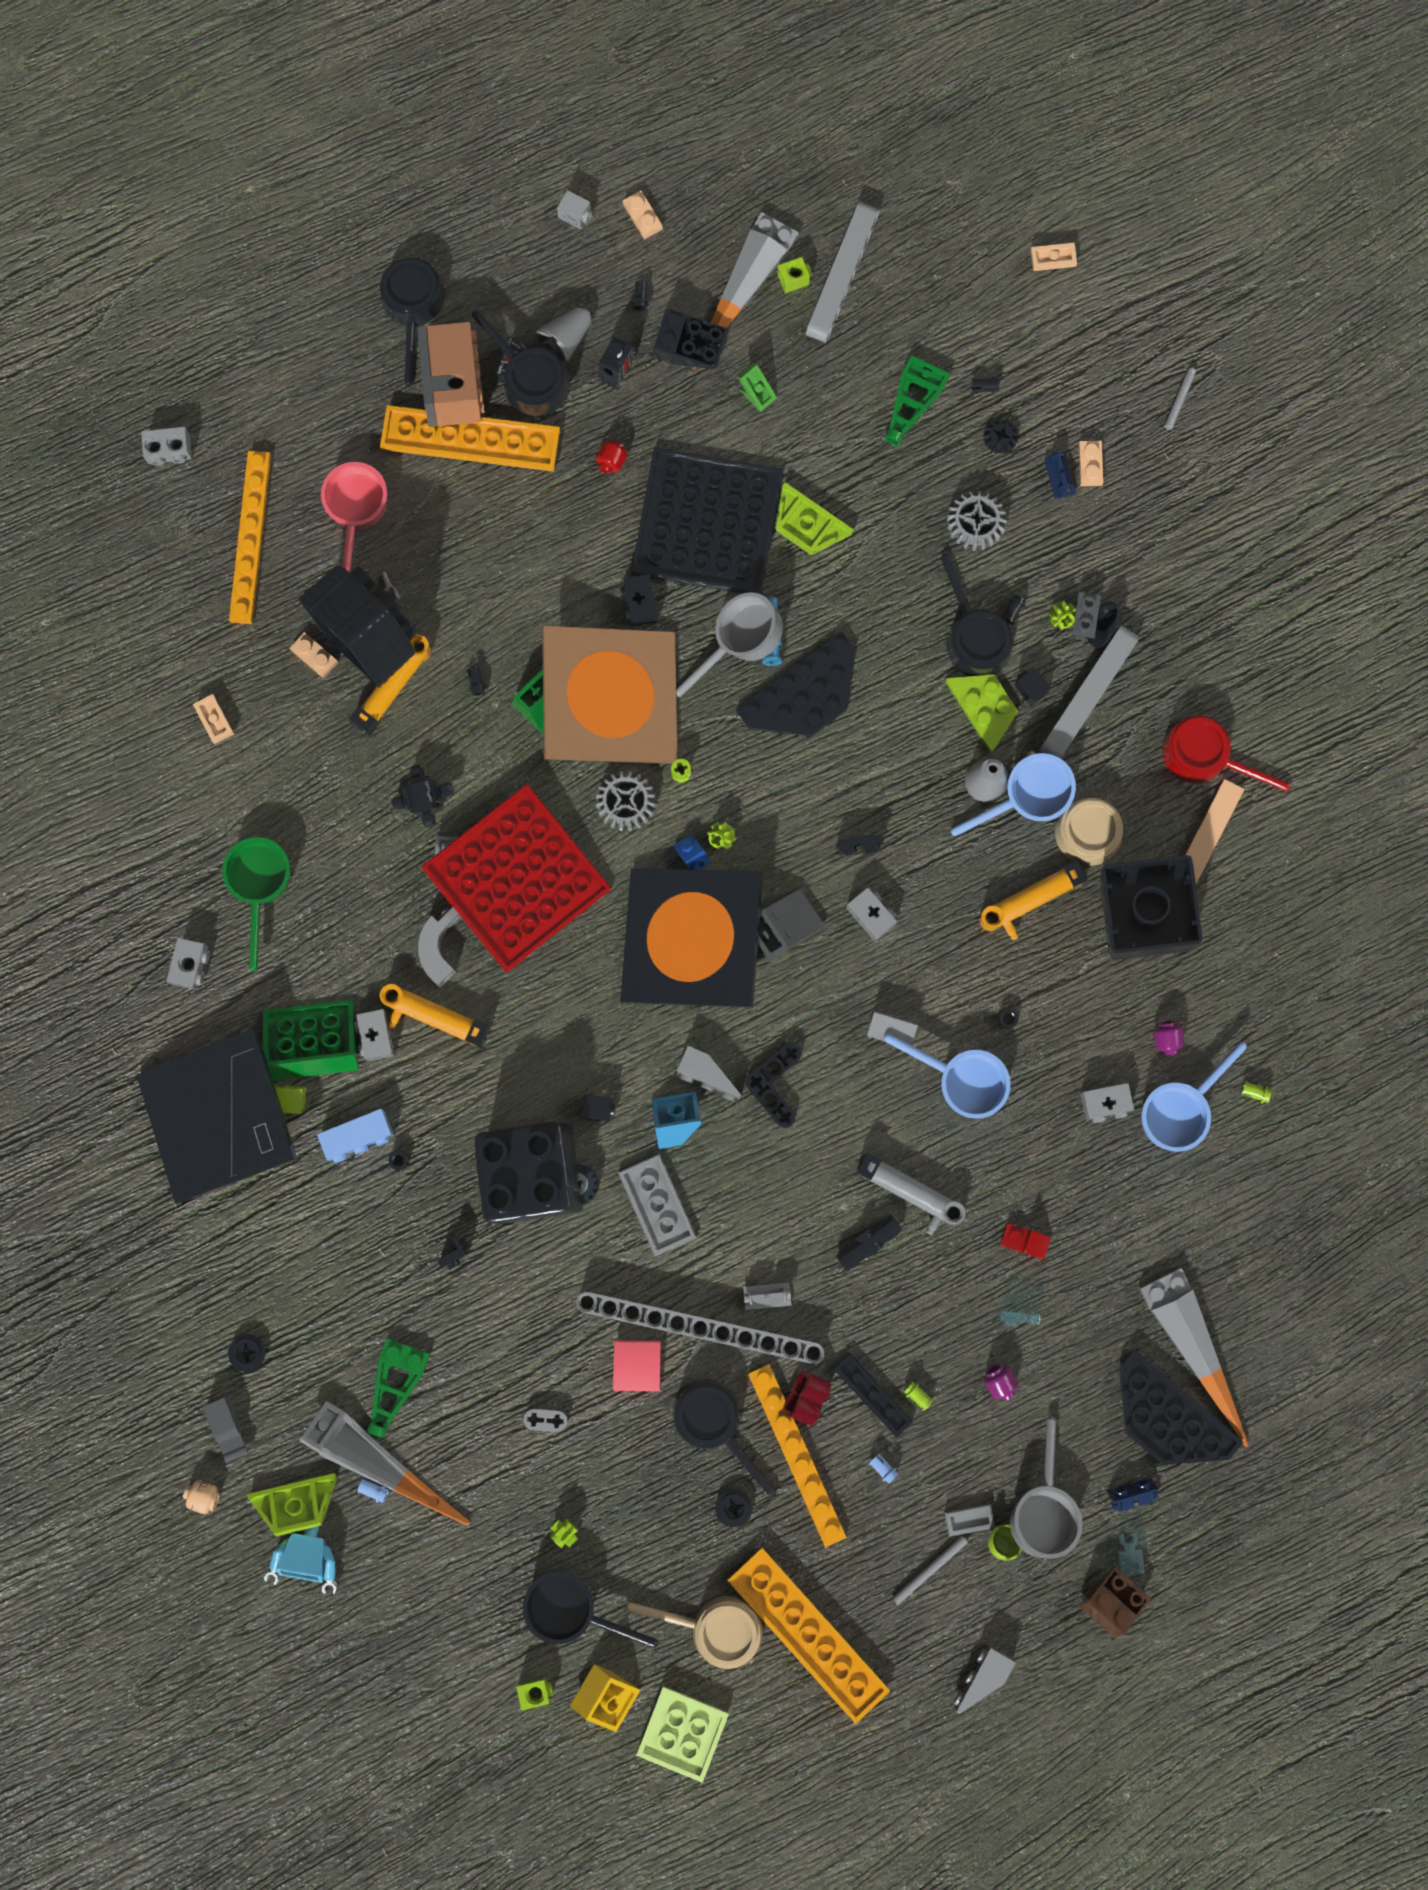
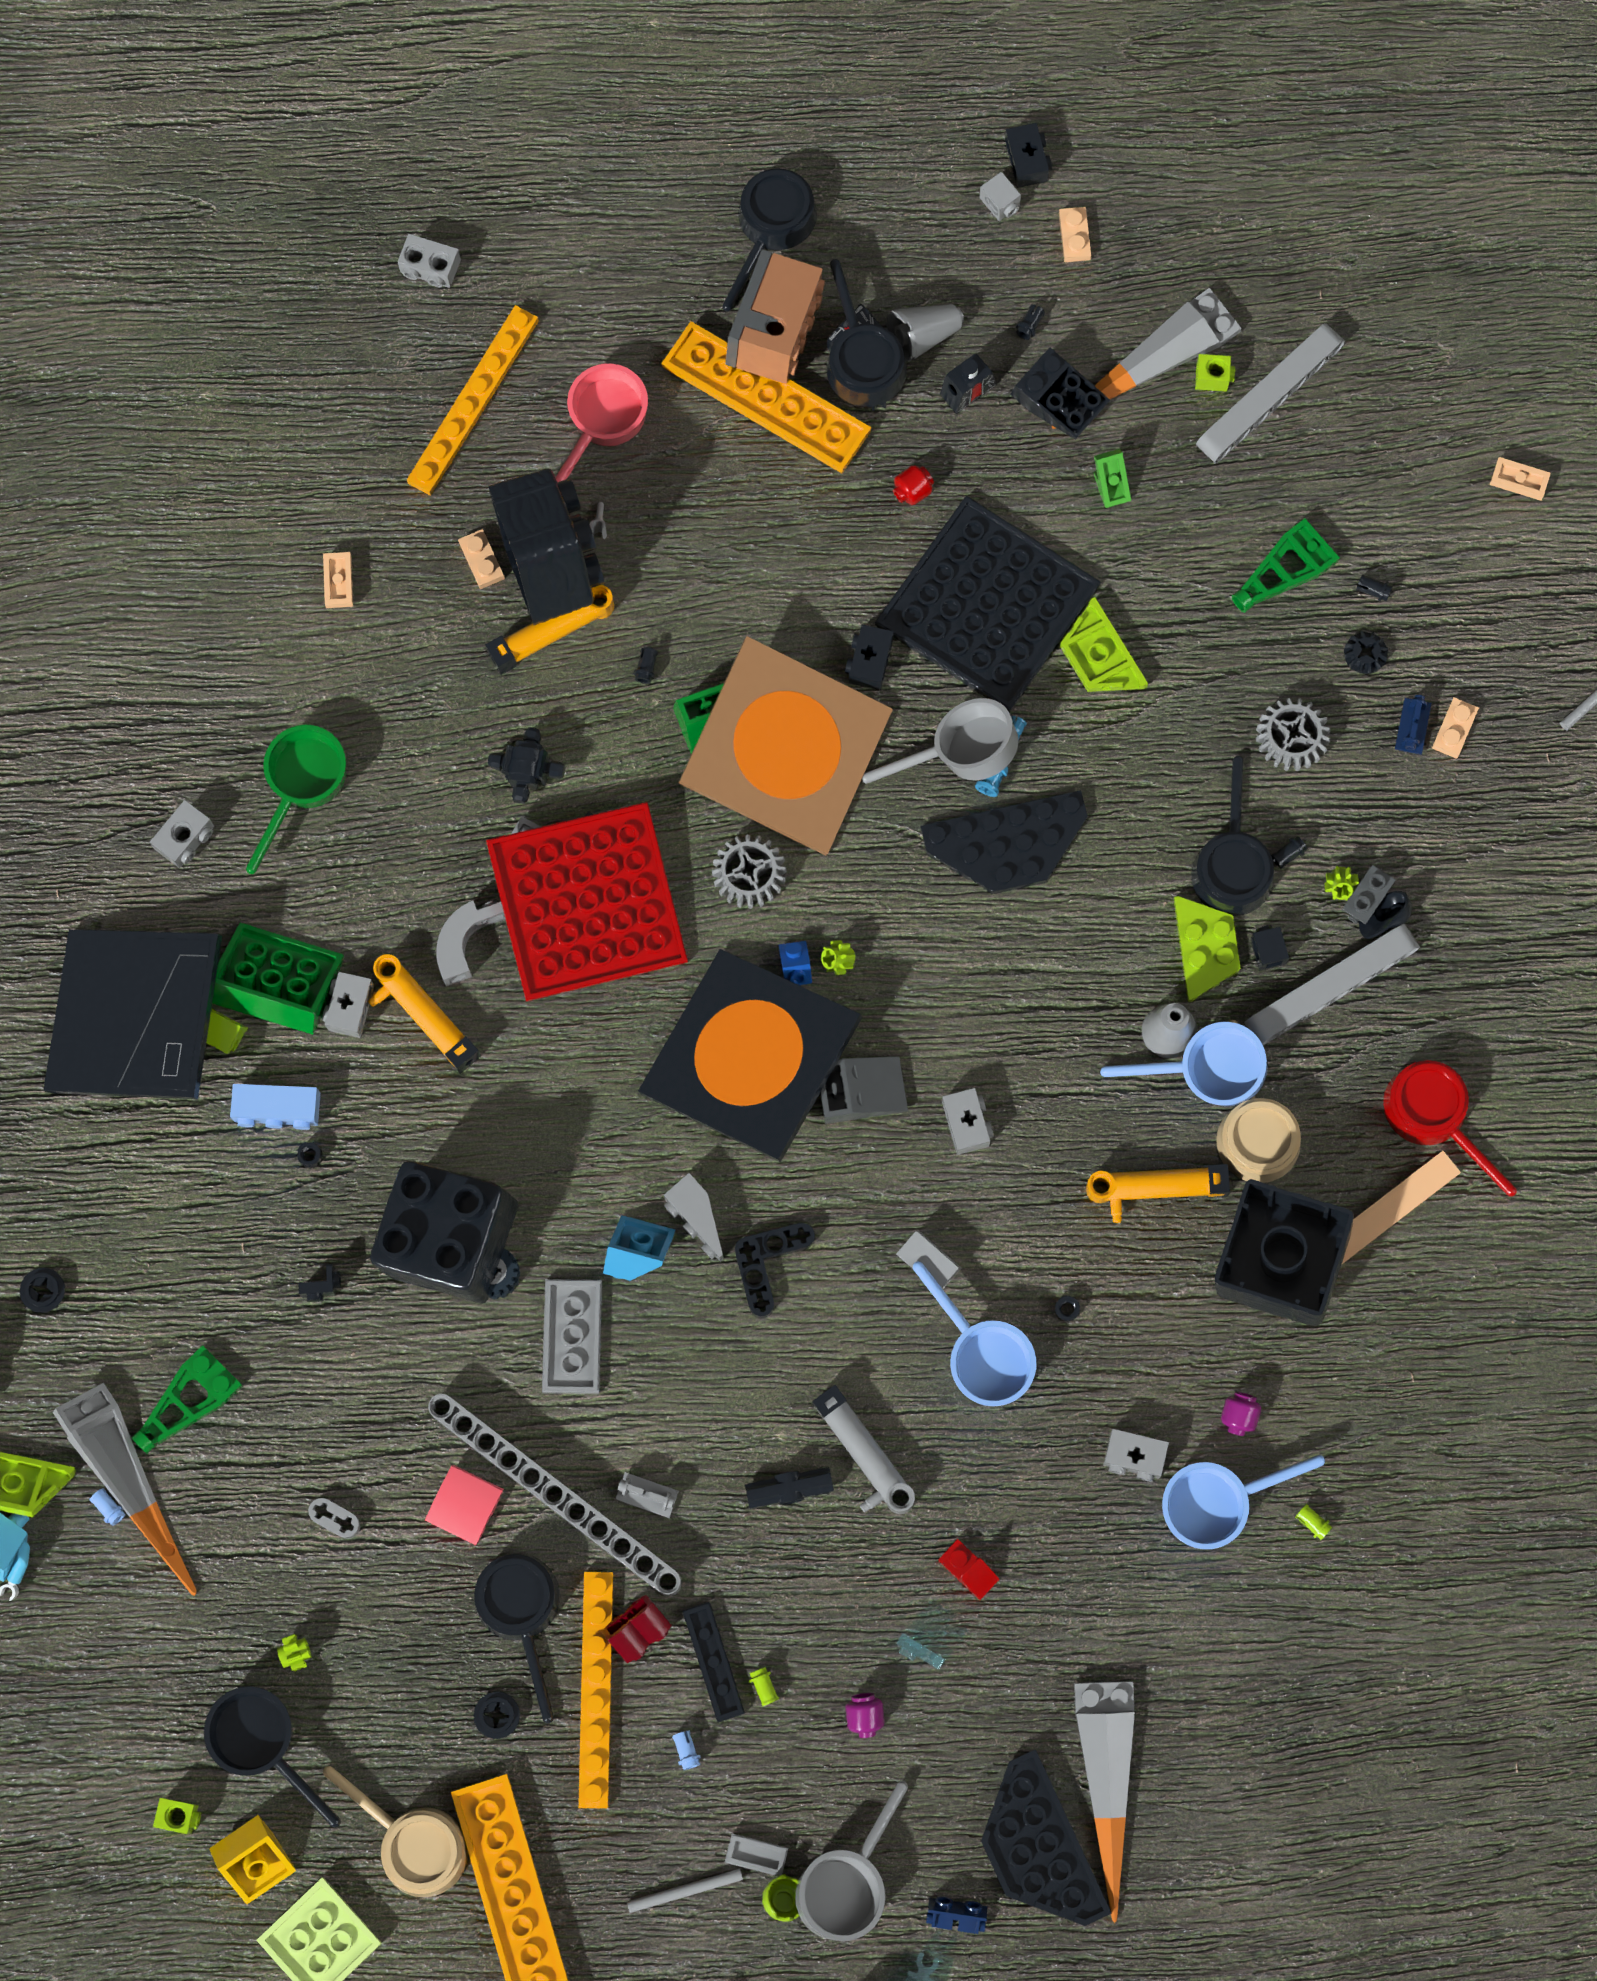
camera: 25 degrees right, 5 degrees down
(579, 169) = (1027, 169): none -> black brick
(597, 1108) = (556, 1197): black brick -> none
(685, 766) = (821, 857): lime bush -> none
(866, 844) = (999, 1040): black slope -> none

